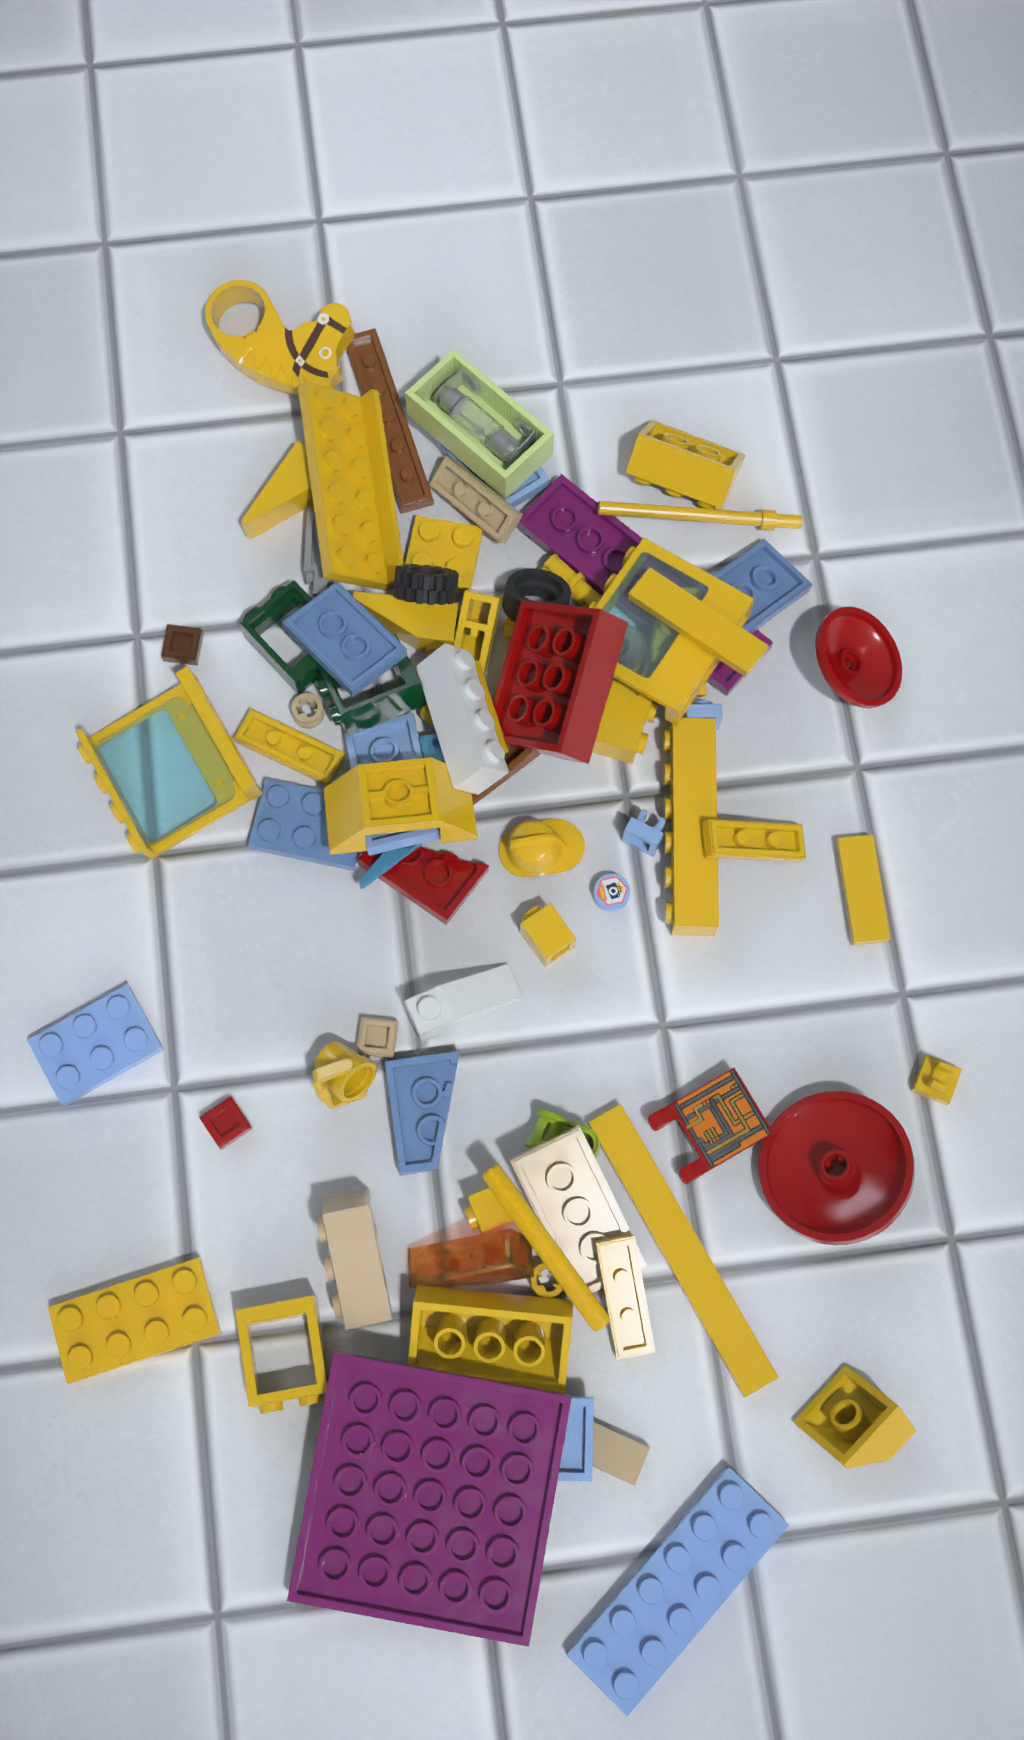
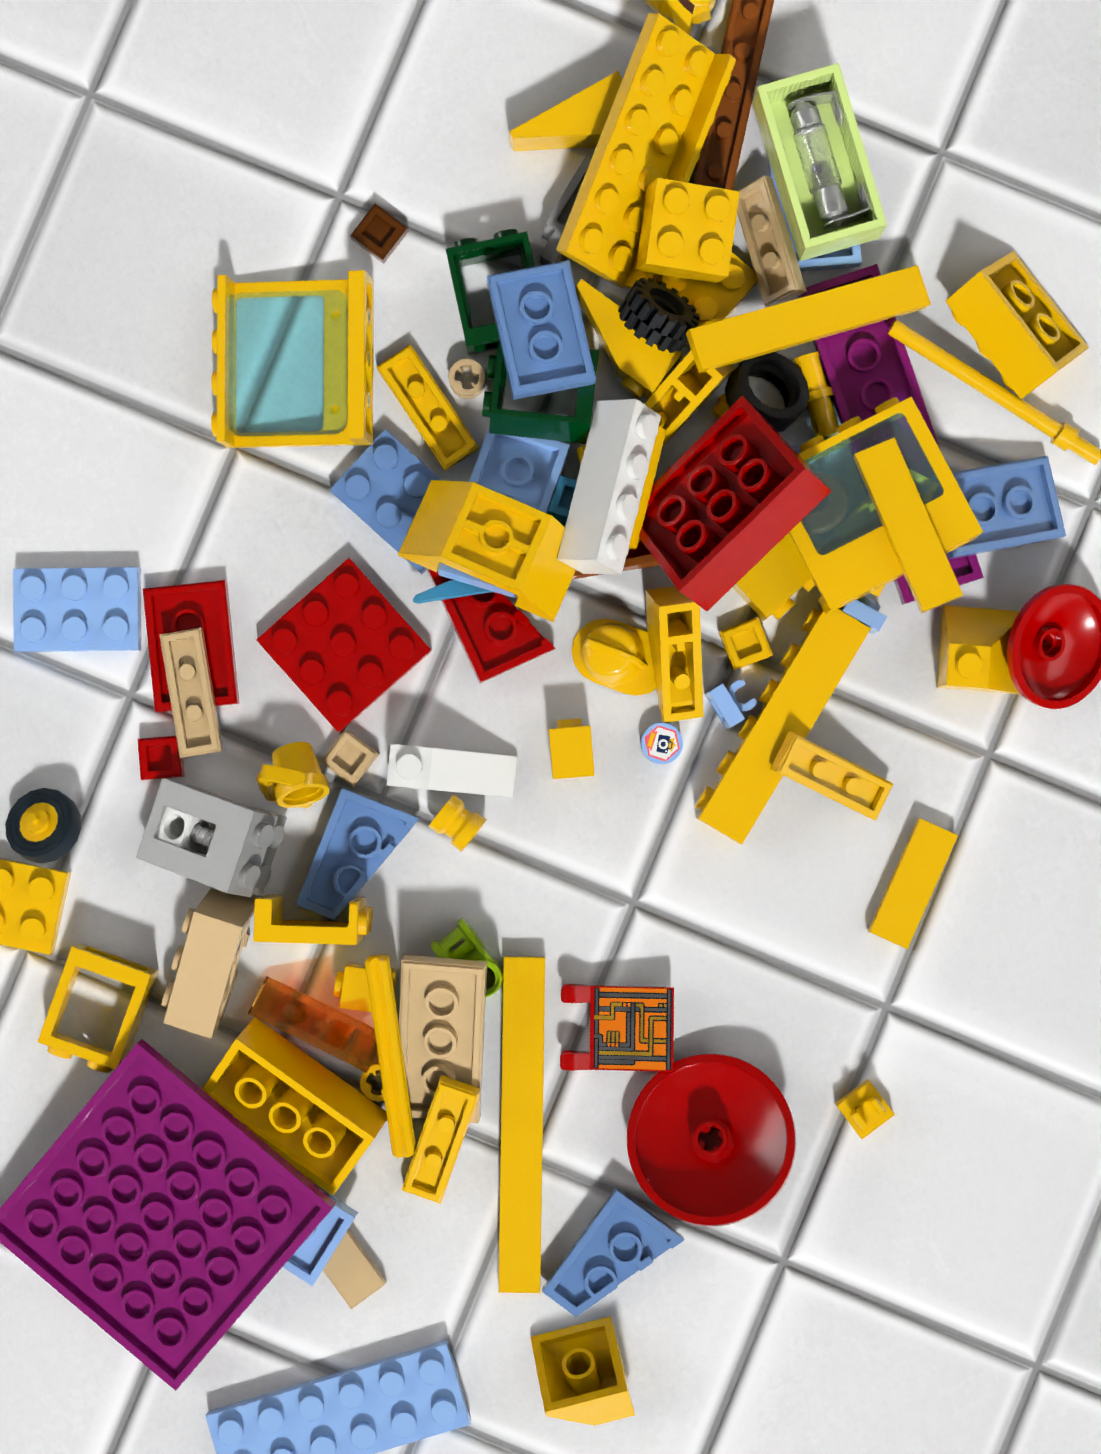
camera: 35 degrees right, 15 degrees up
(158, 1228) = (43, 825): none -> black wheel
(203, 1023) = (186, 608): none -> red tile
(223, 1055) = (191, 692): none -> tan tile
(324, 955) = (344, 645): none -> red plate
(329, 1150) = (238, 848): none -> light grey brick
(412, 515) = (687, 230): none -> yellow brick
(425, 1183) = (272, 928): none -> yellow panel
(491, 1037) = (457, 823): none -> yellow wheel
(534, 531) = (807, 319): none -> yellow tile
(581, 816) = (675, 653): none -> yellow slope
(629, 786) = (745, 643): none -> yellow tile
(802, 698) = (975, 649): none -> yellow slope
(812, 1308) = (609, 1251): none -> medium blue wing

